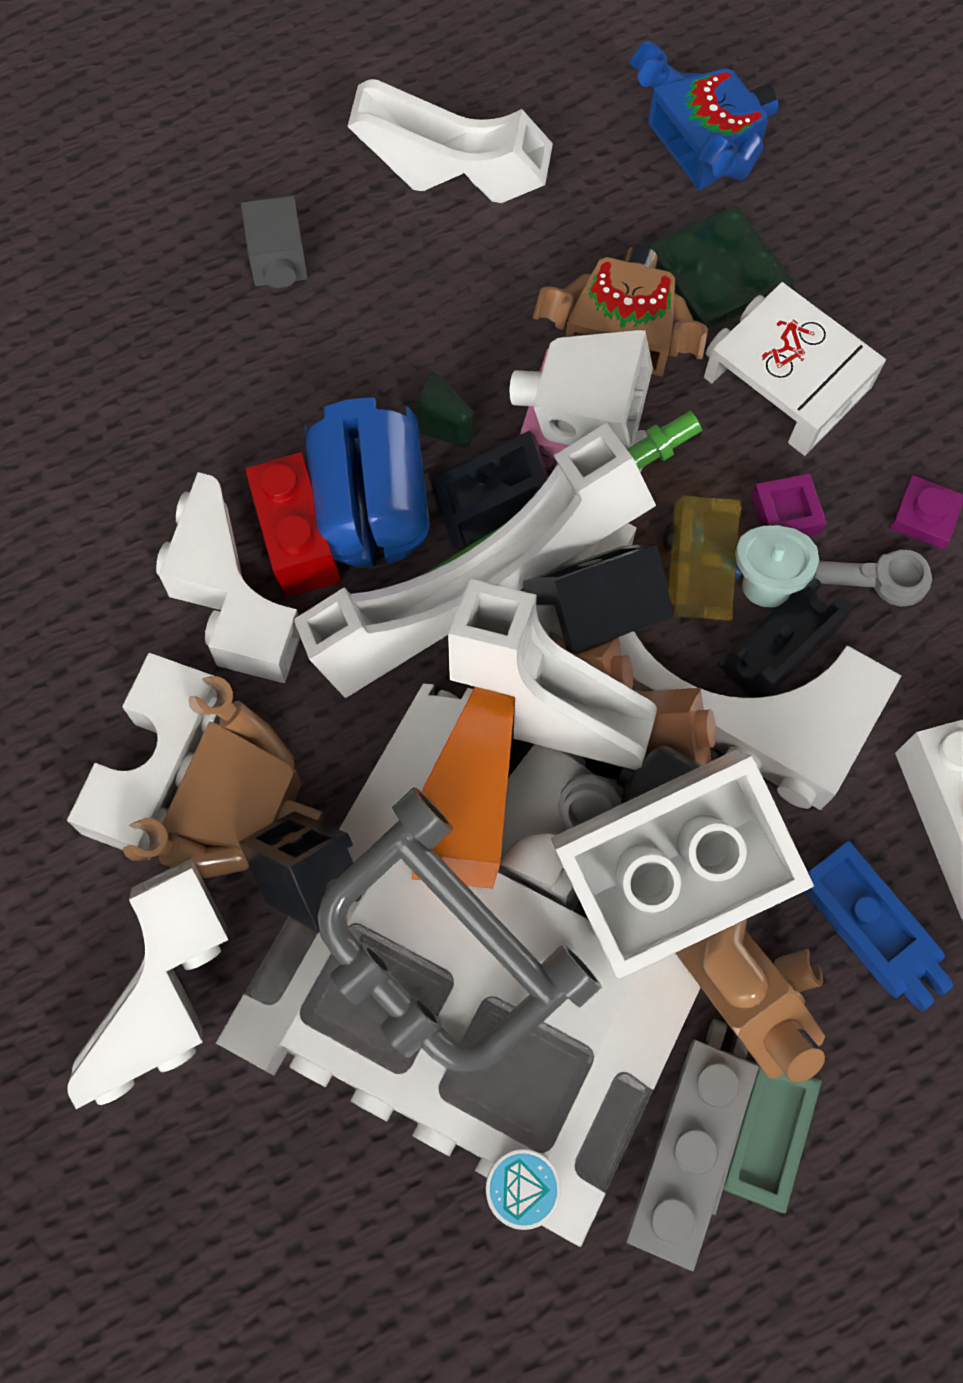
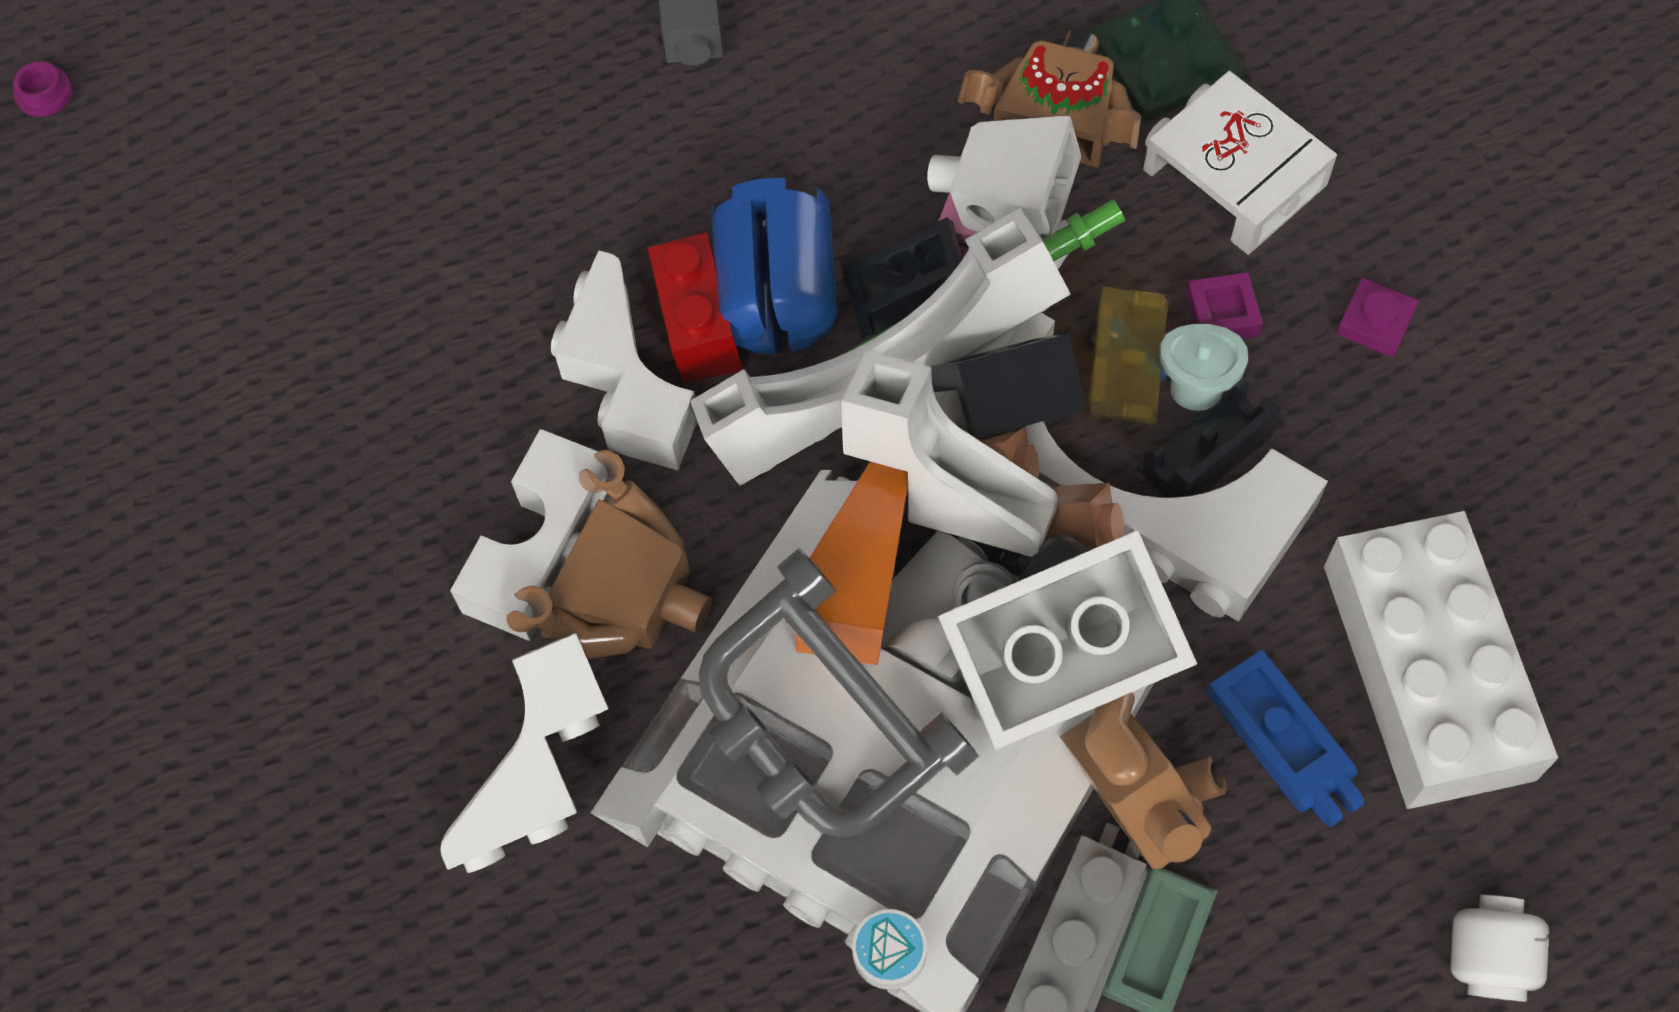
camera: 10 degrees right, 5 degrees down
(296, 862) = (675, 635): black hinge -> none
(444, 413) = (859, 199): clear green slope -> none
(897, 577) = (1337, 383): light grey plate -> none

